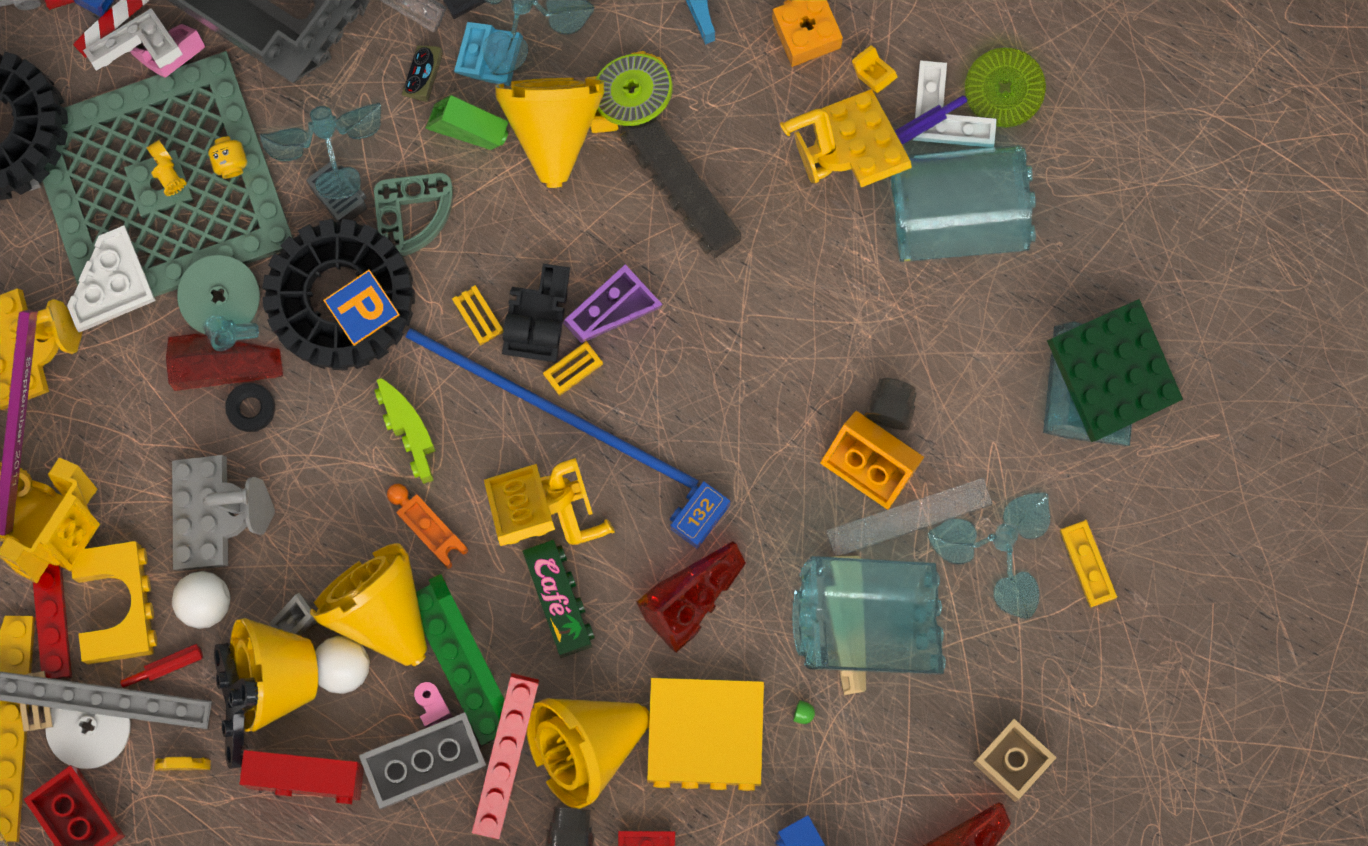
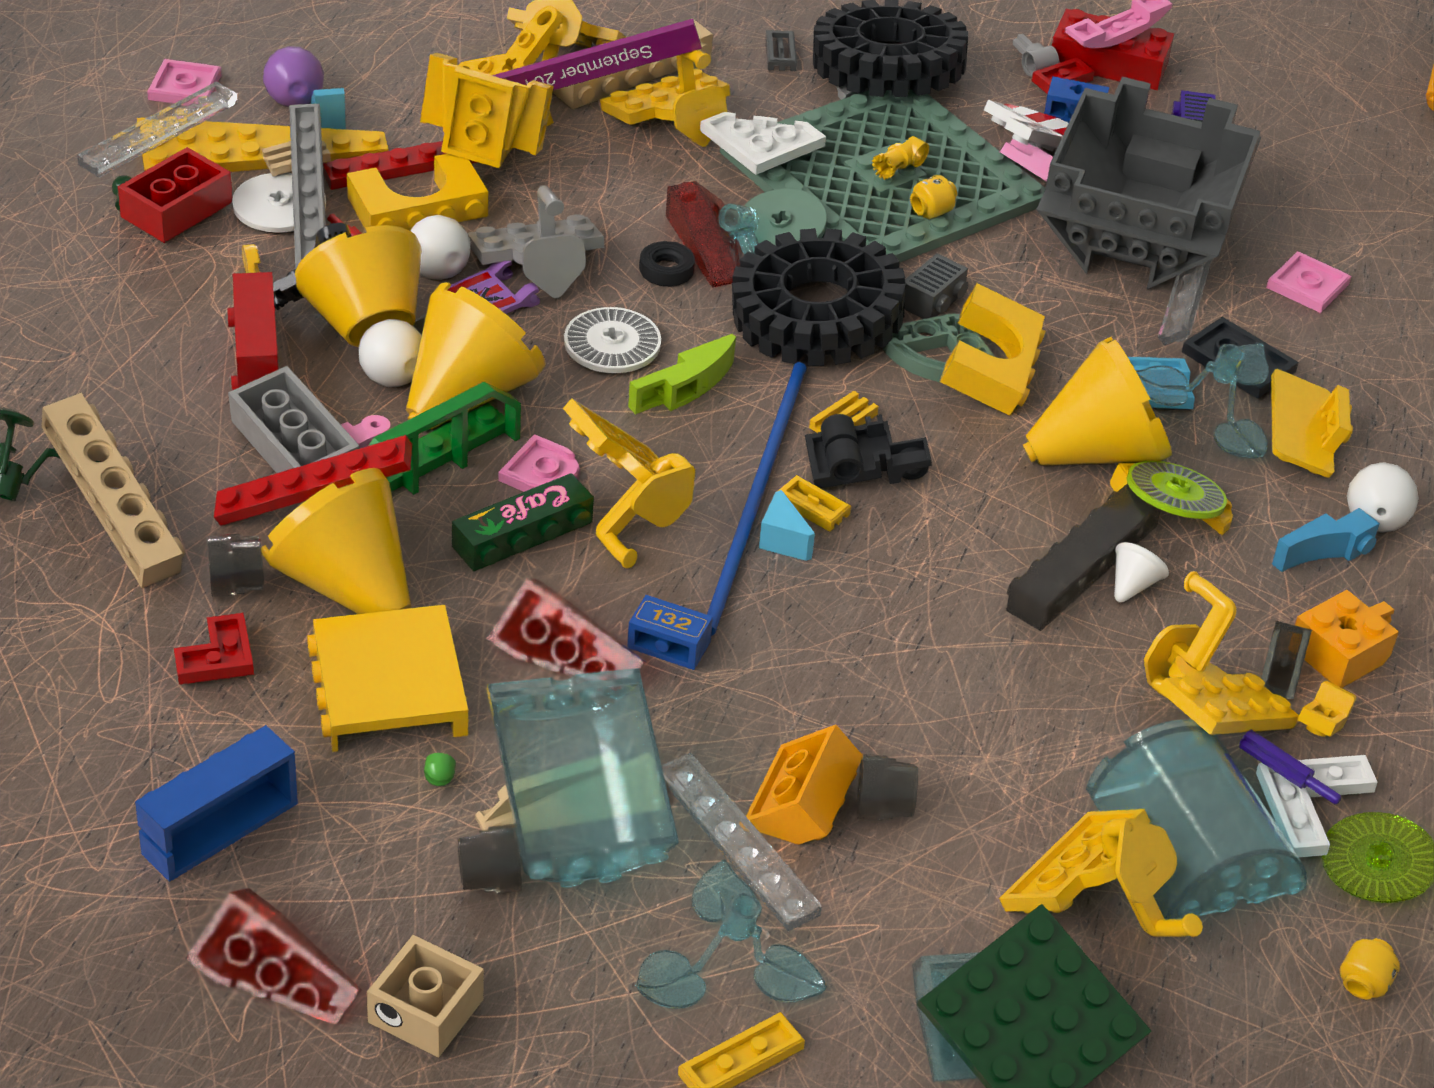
camera: 70 degrees right, 35 degrees down
(261, 575) = (488, 285): none -> medium lavender flag
(289, 145) = (999, 243): clear light blue plant -> none
(355, 494) = (612, 340): none -> piece
(361, 307) = (806, 289): blue piece -> none
(416, 145) = (1016, 331): none -> yellow arch
(423, 72) = (1088, 337): slope -> none
(425, 524) = (591, 394): orange plate -> none
(467, 123) = (1062, 356): bright green slope -> none
(488, 569) = (537, 464): none -> bright pink tile
(604, 400) = (786, 530): none -> medium azure slope
(611, 306) = (901, 510): medium lavender wedge -> none
(707, 151) = (1136, 570): none -> white hat
(821, 81) = (1285, 659): none -> clear smoke slope
(906, 694) = (490, 860): none -> clear smoke piece
(983, 286) = (1097, 852): none -> yellow plate
(1101, 136) = (1369, 968): none -> yellow head

